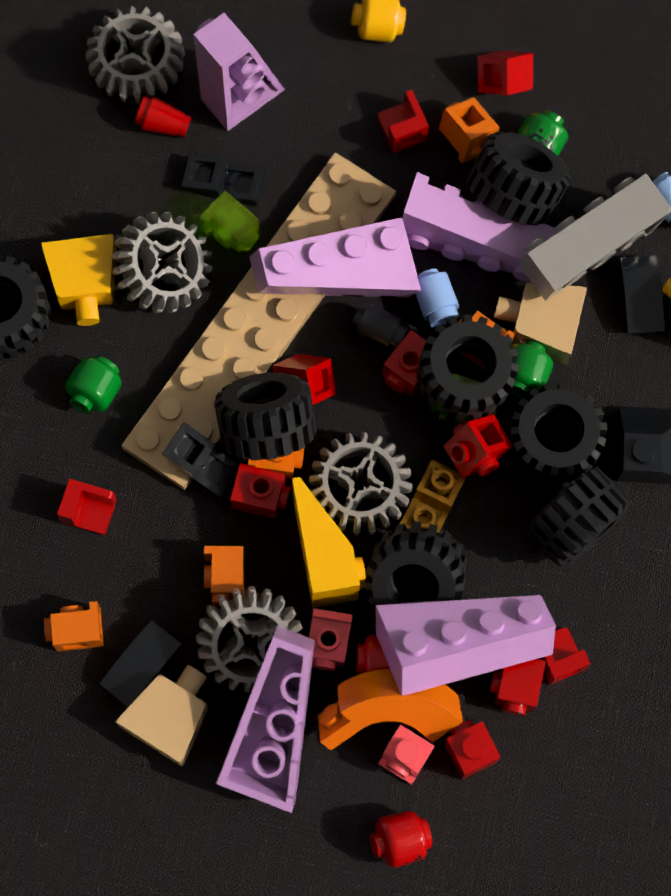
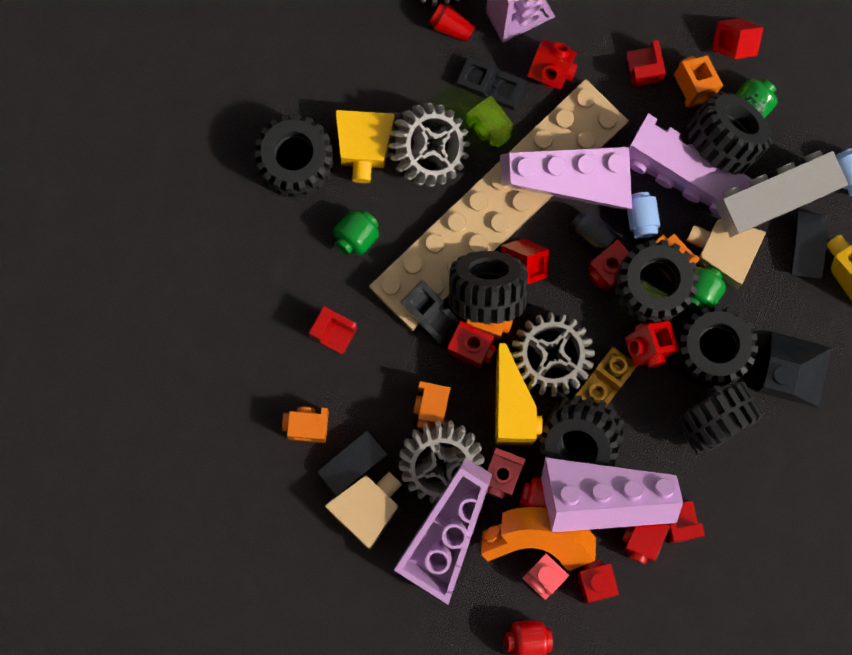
camera: 10 degrees right, 5 degrees up
(293, 141) = (553, 64): none -> red brick

